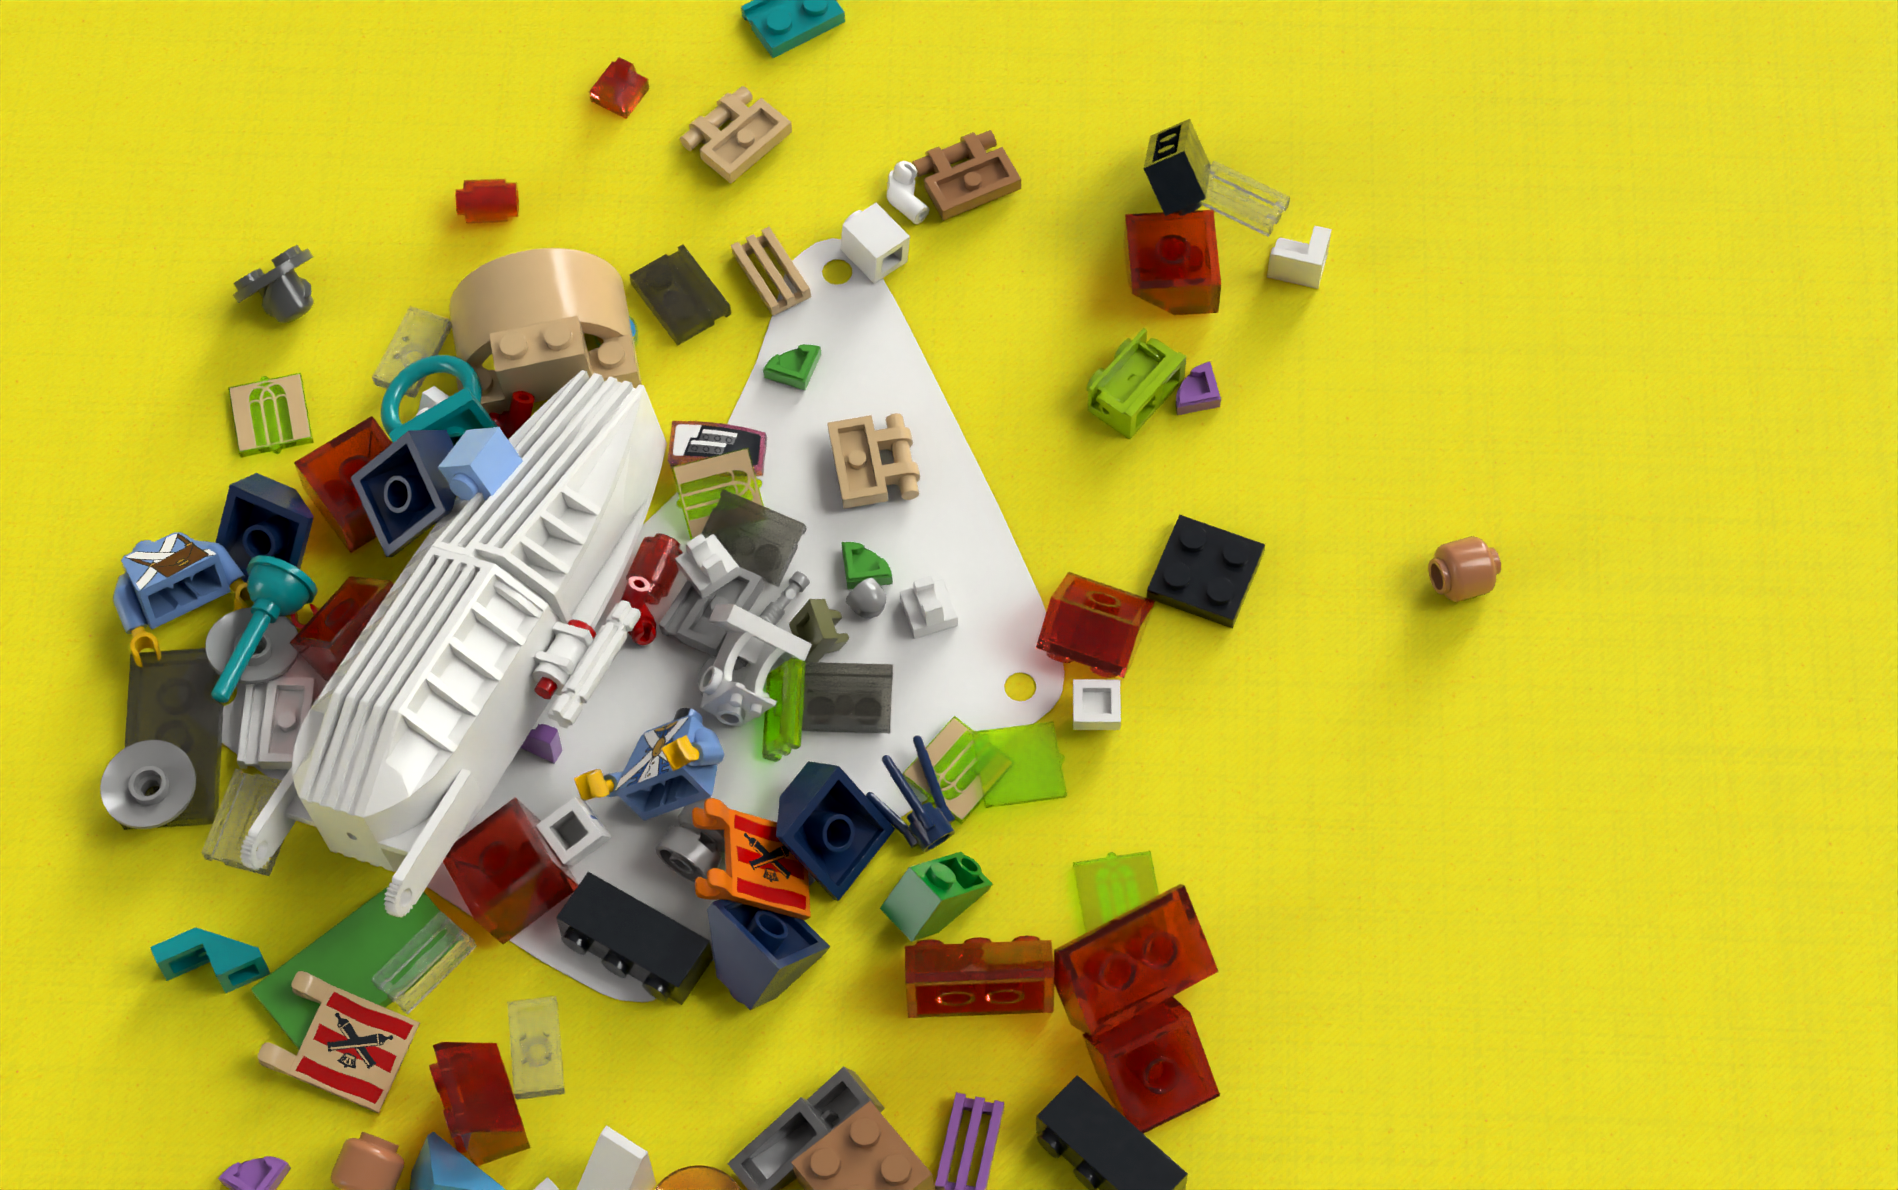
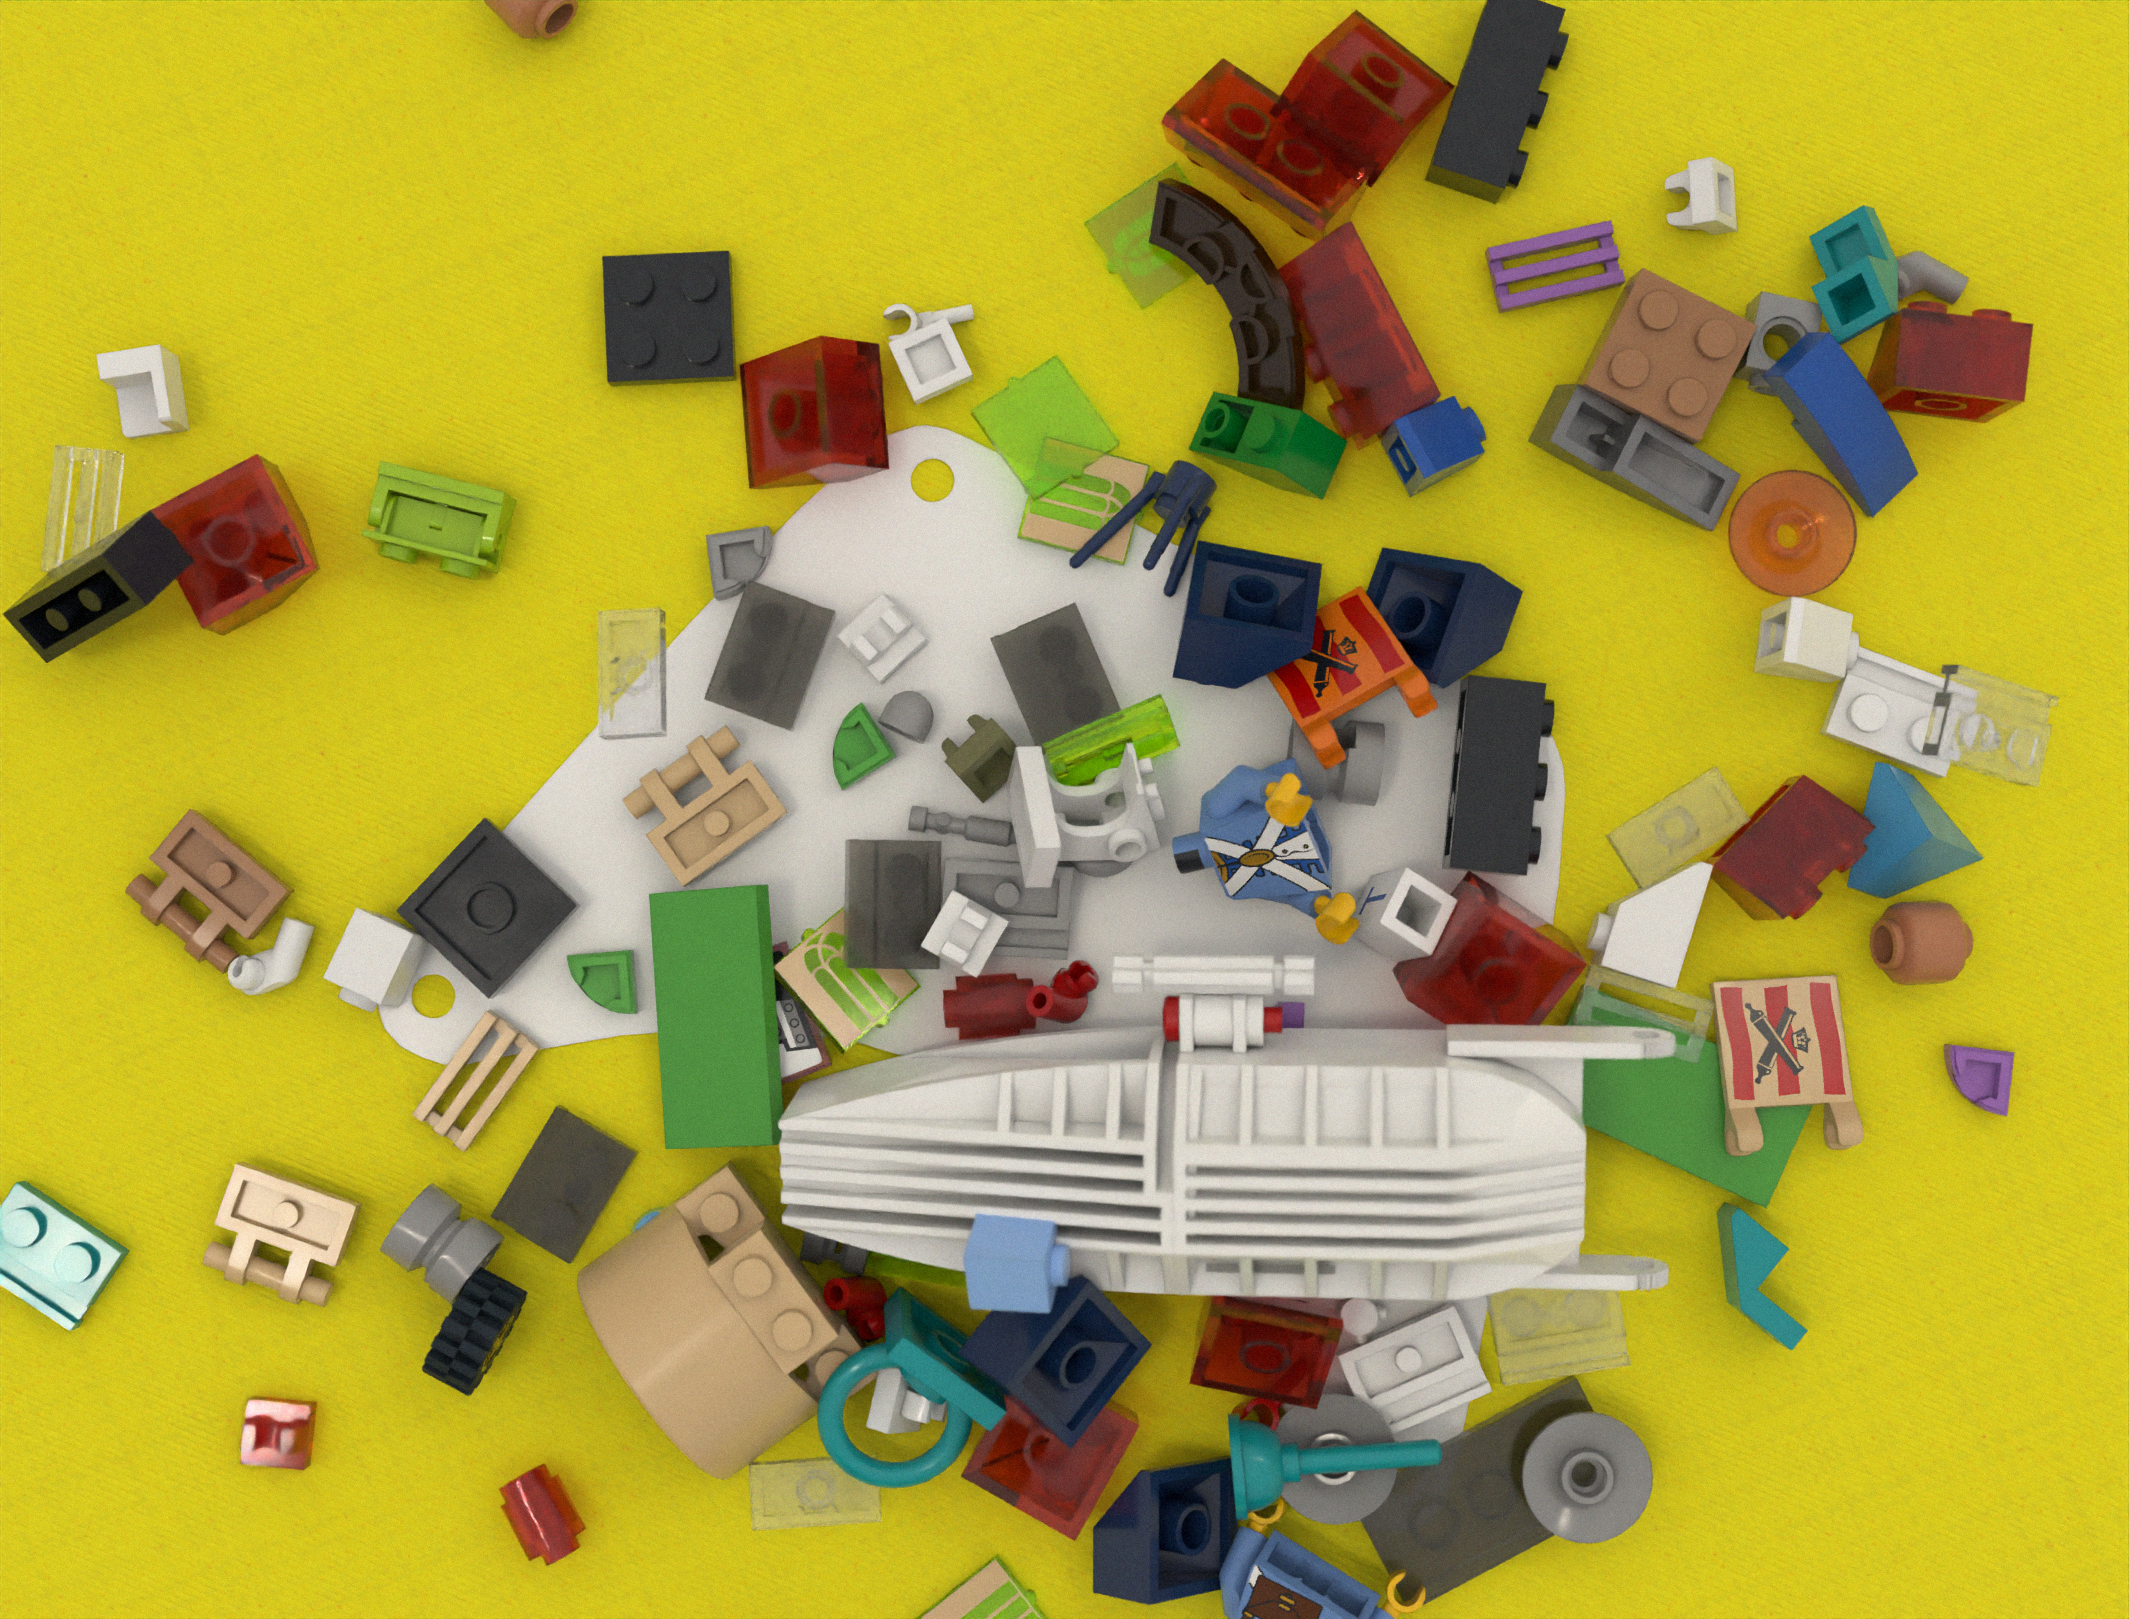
camera: 115 degrees left, 25 degrees up
(476, 993) = (1651, 927): none -> white slope
(617, 201) = (474, 1331): none -> black wheel
(679, 209) = (436, 1238): none -> light grey wheel
(737, 409) = (716, 1017): none -> bright green tile
(873, 315) = (488, 908): none -> black plate
(880, 992) = (1433, 443): none -> blue slope
(950, 535) = (770, 655): none -> clear smoke plate
(980, 453) = (632, 673): none -> clear plate
(1019, 920) = (1249, 283): none -> dark brown tile
(1024, 545) = (736, 558): none -> light grey tile
(1130, 717) = (920, 320): none -> white hand
(1198, 391) = (407, 441): medium lavender tile -> none

